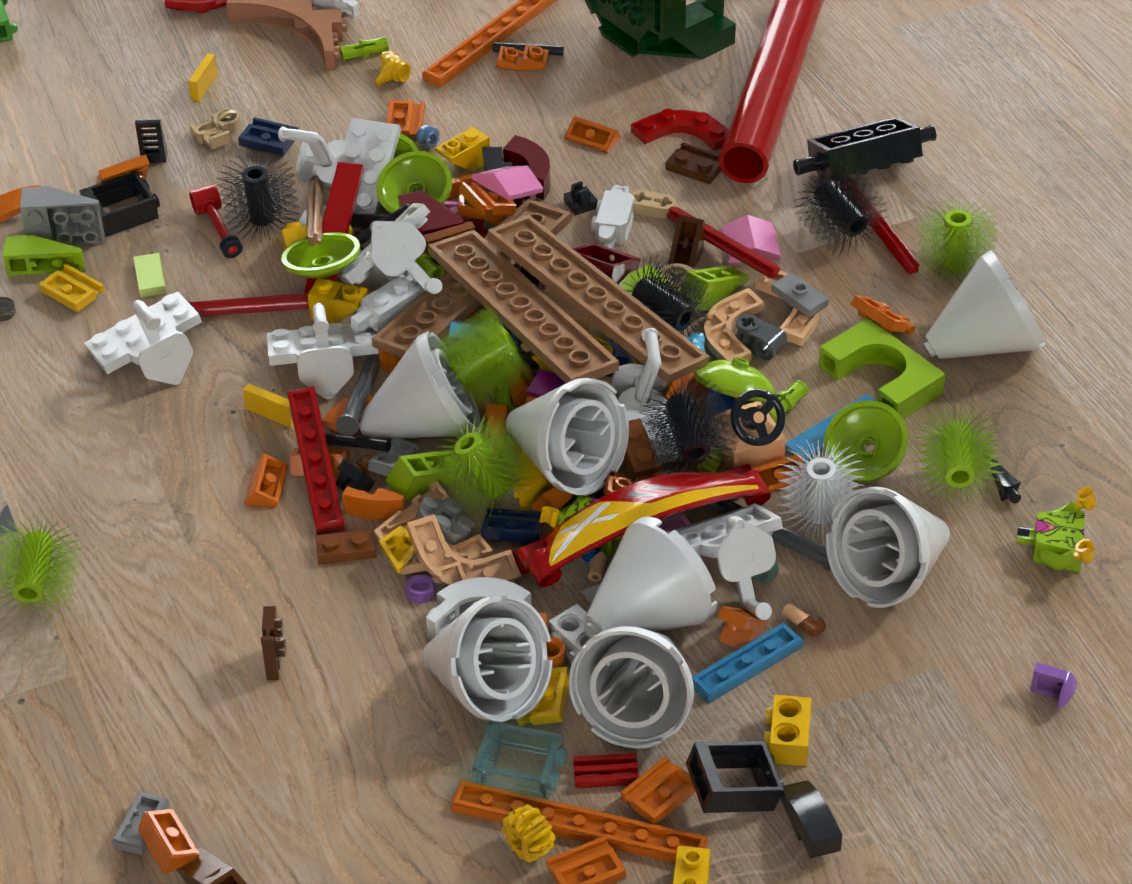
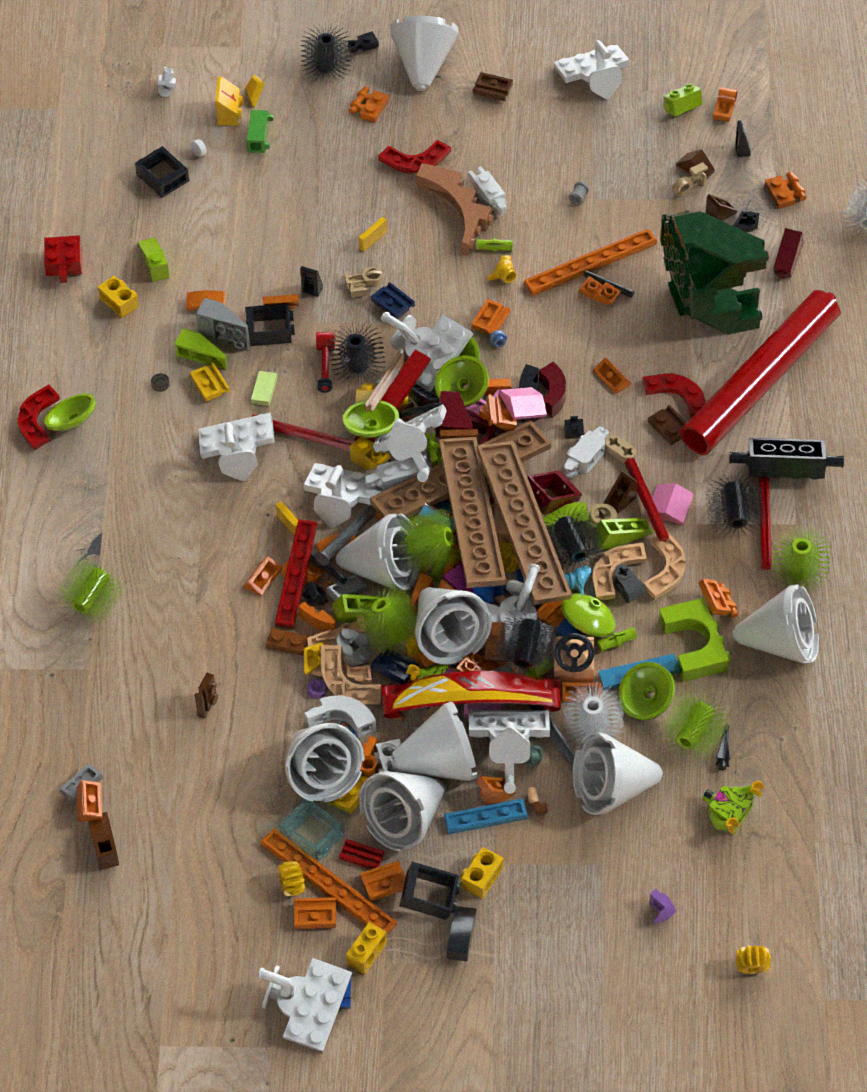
camera: 25 degrees right, 10 degrees up
(465, 149) = (513, 360): yellow slope -> none
(800, 294) = (671, 562): light grey plate -> none

